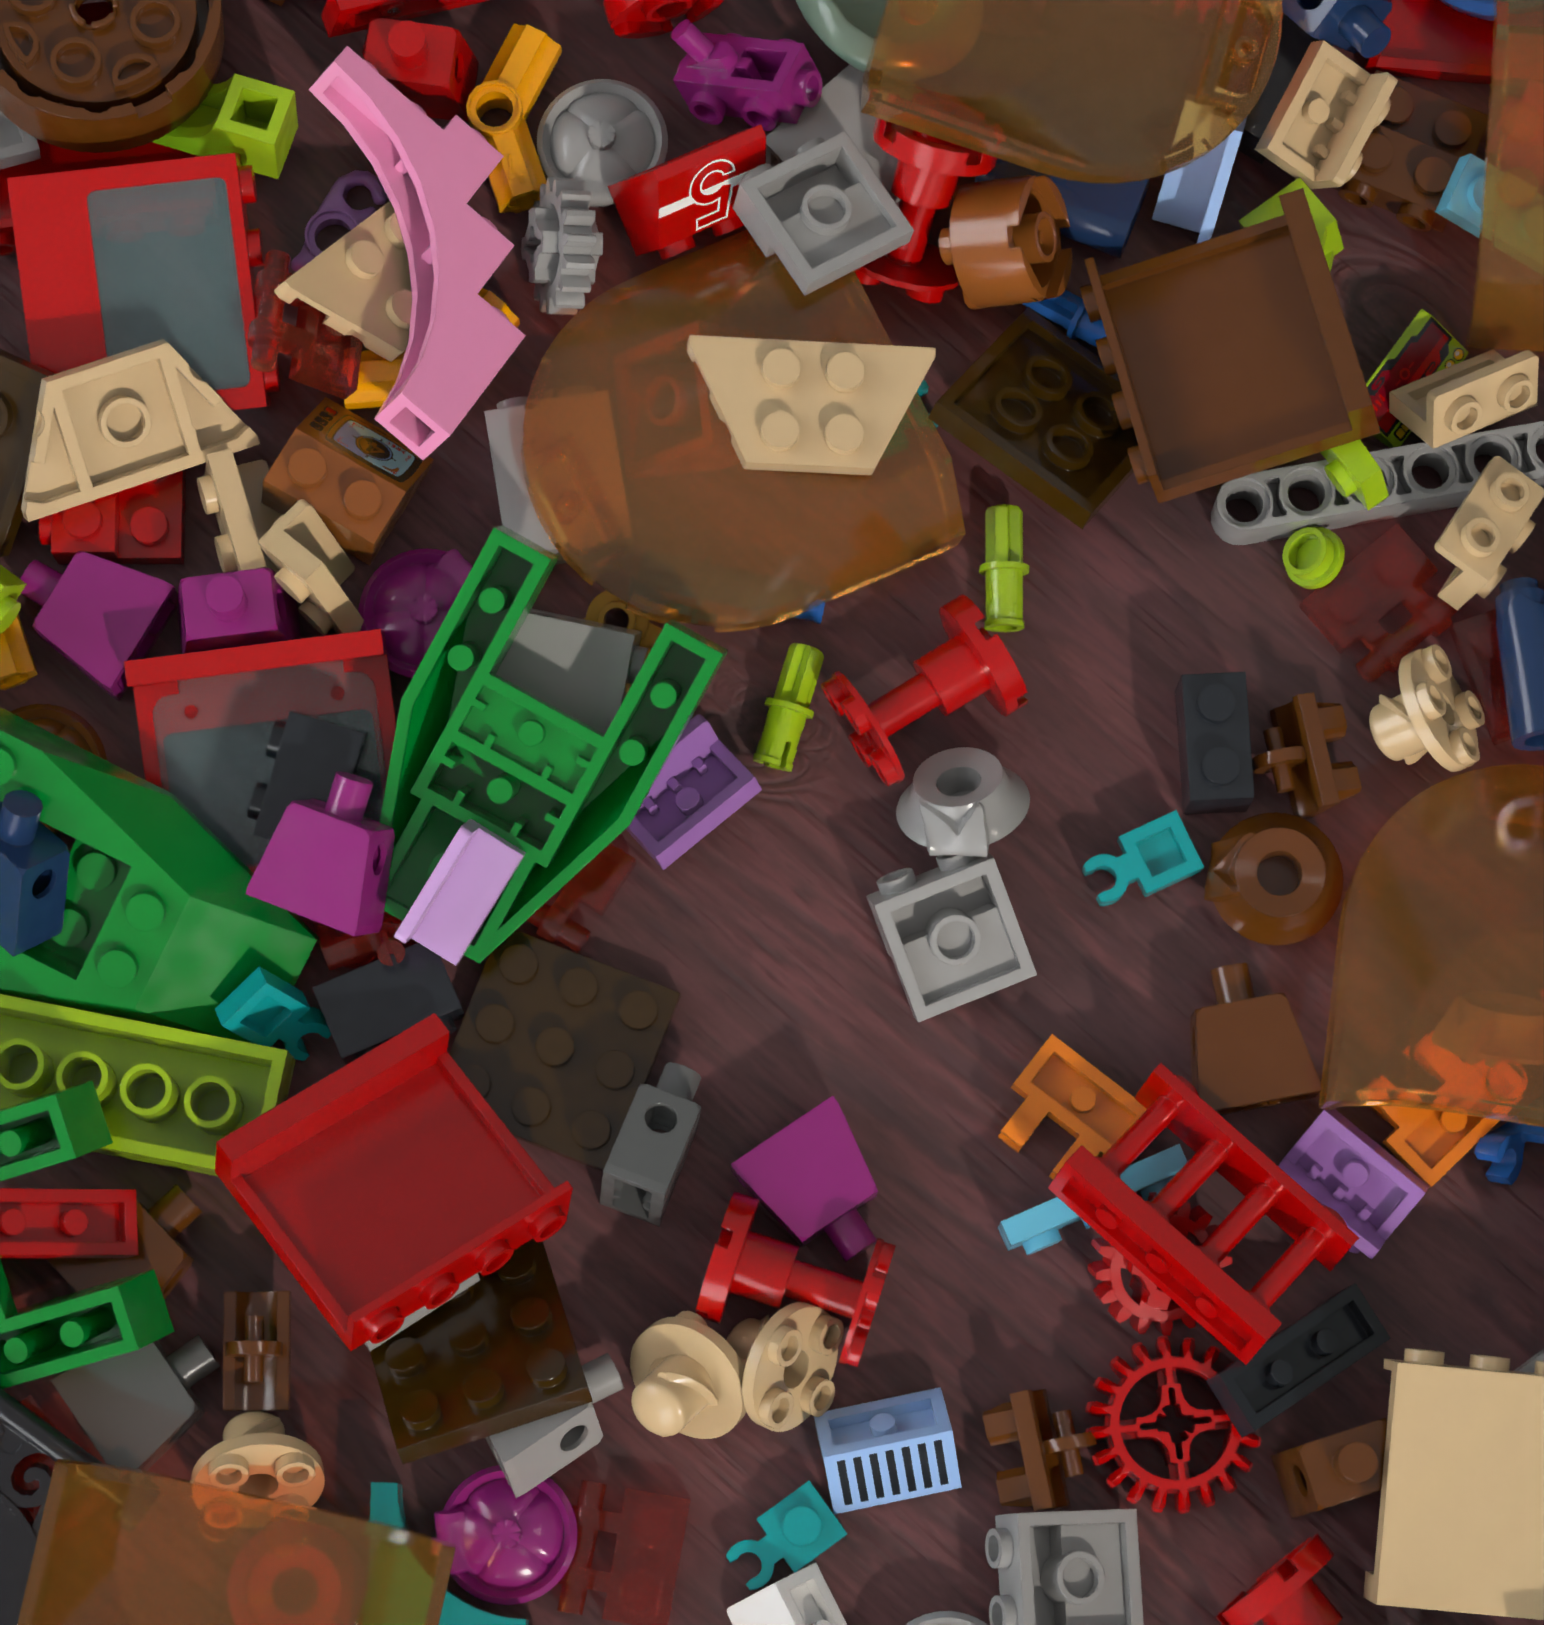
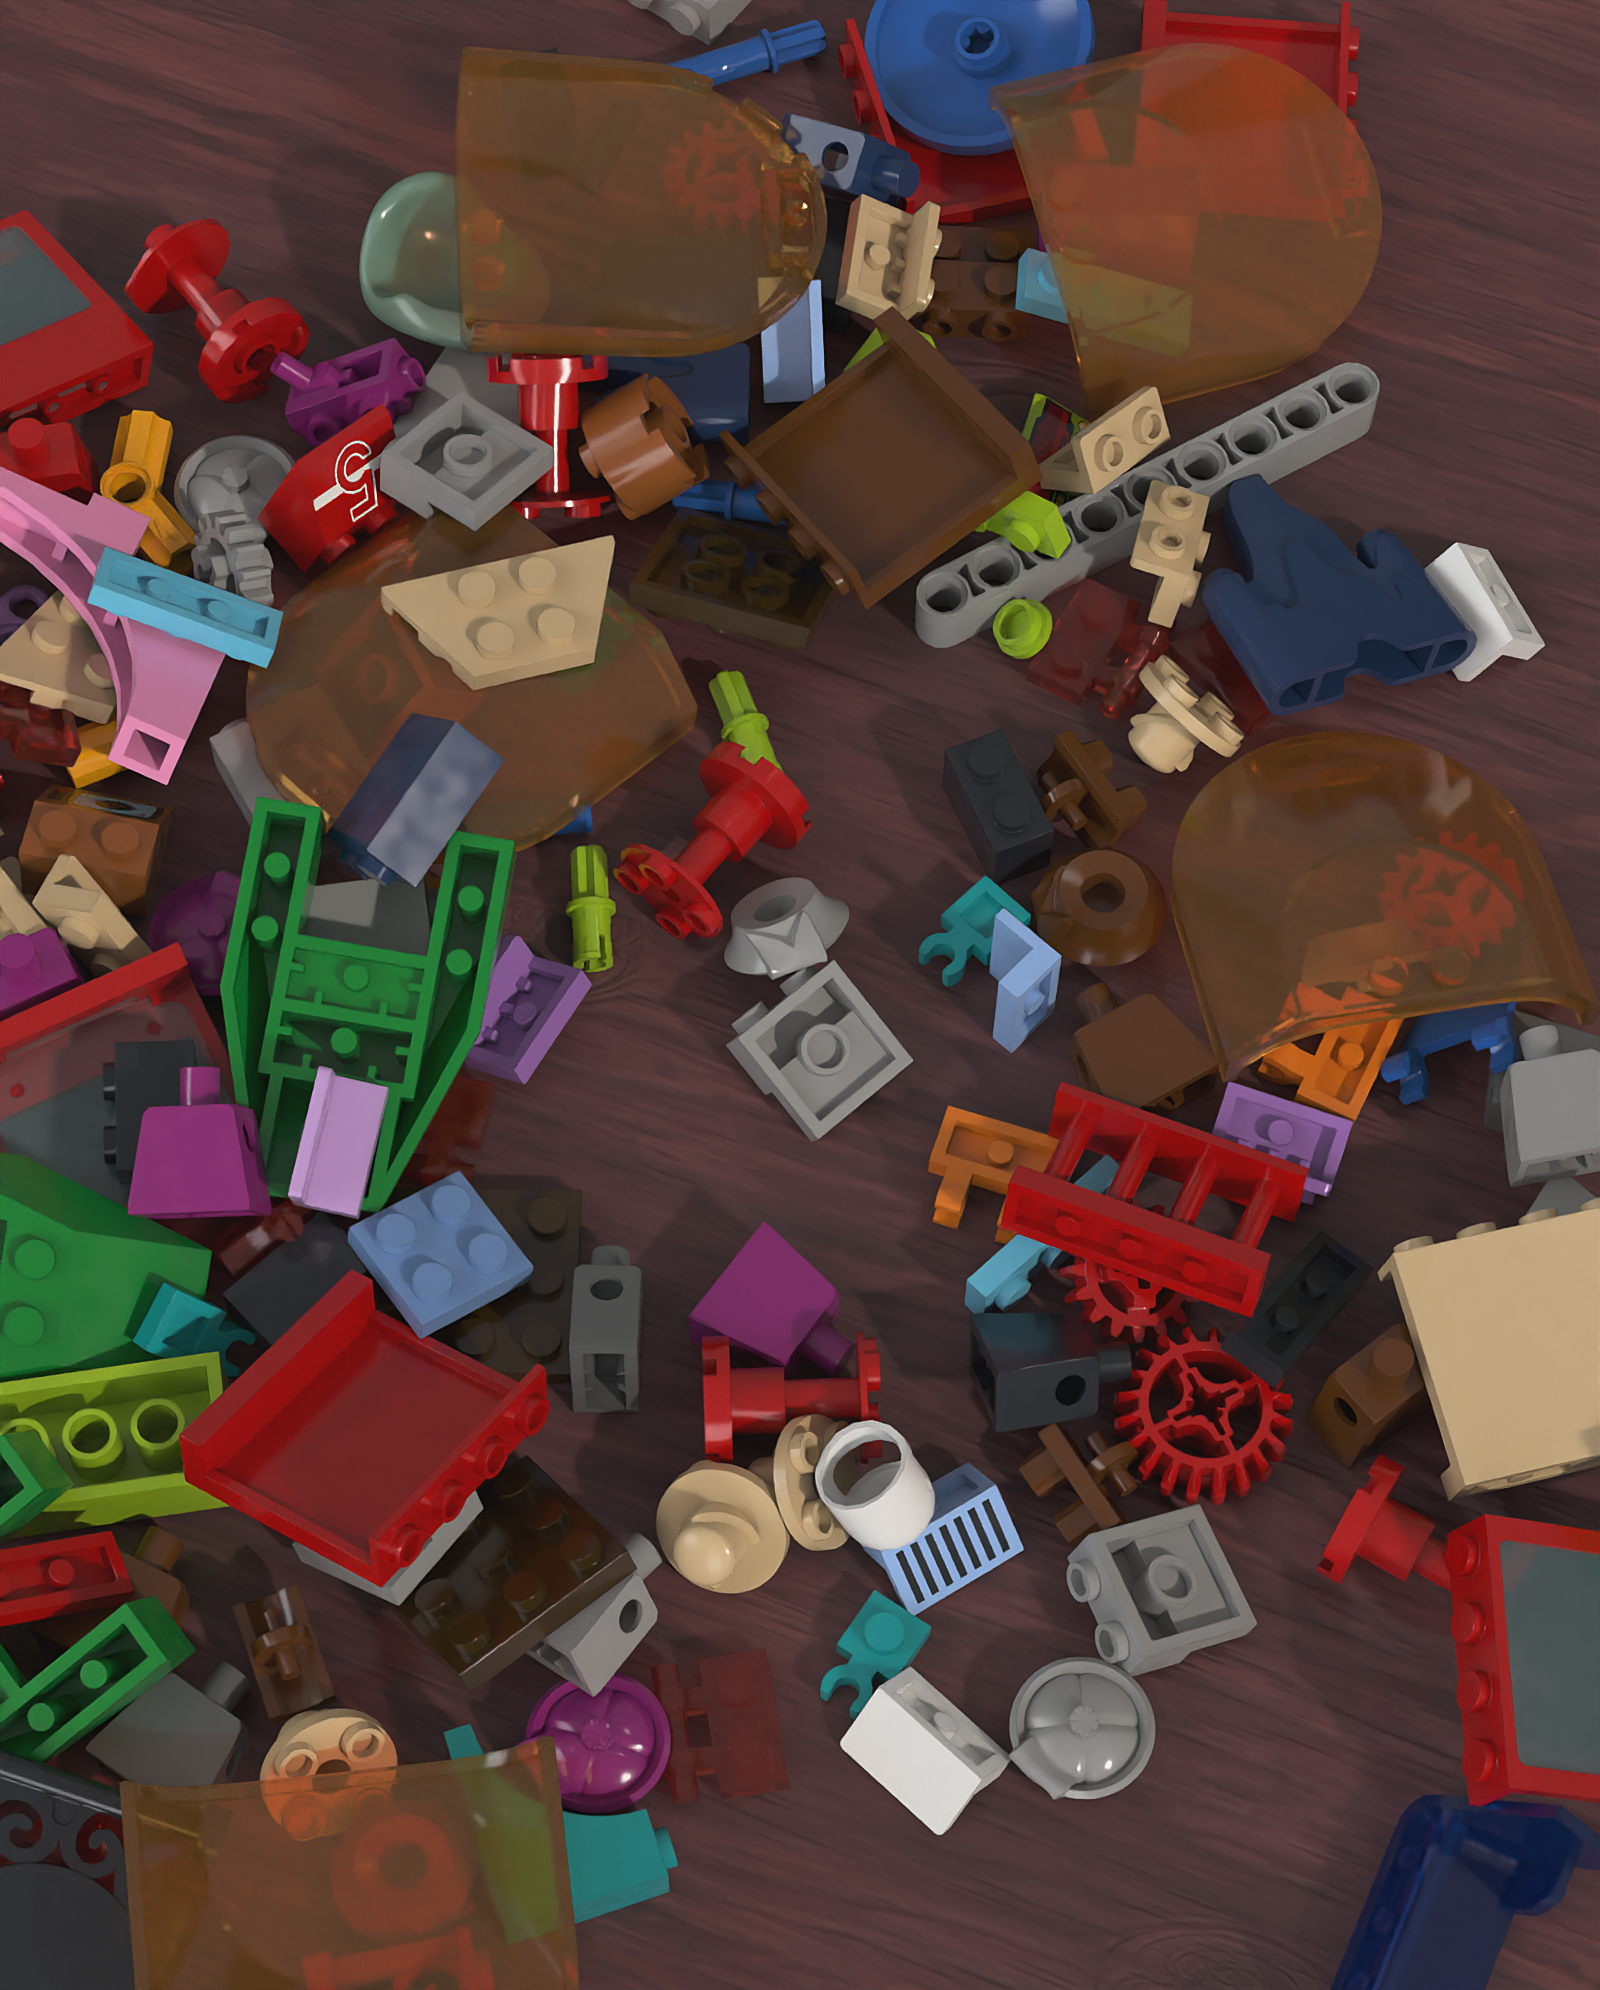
camera: 20 degrees left, 15 degrees down
(498, 283) = (185, 607): none -> medium azure plate
(523, 1021) = (439, 1254): none -> medium blue plate
(642, 575) = (412, 800): none -> dark blue brick
(842, 1415) = (889, 1502): none -> white helmet
(1036, 1331) = (1040, 1367): none -> black torso
(1172, 951) = (1026, 978): none -> light blue panel

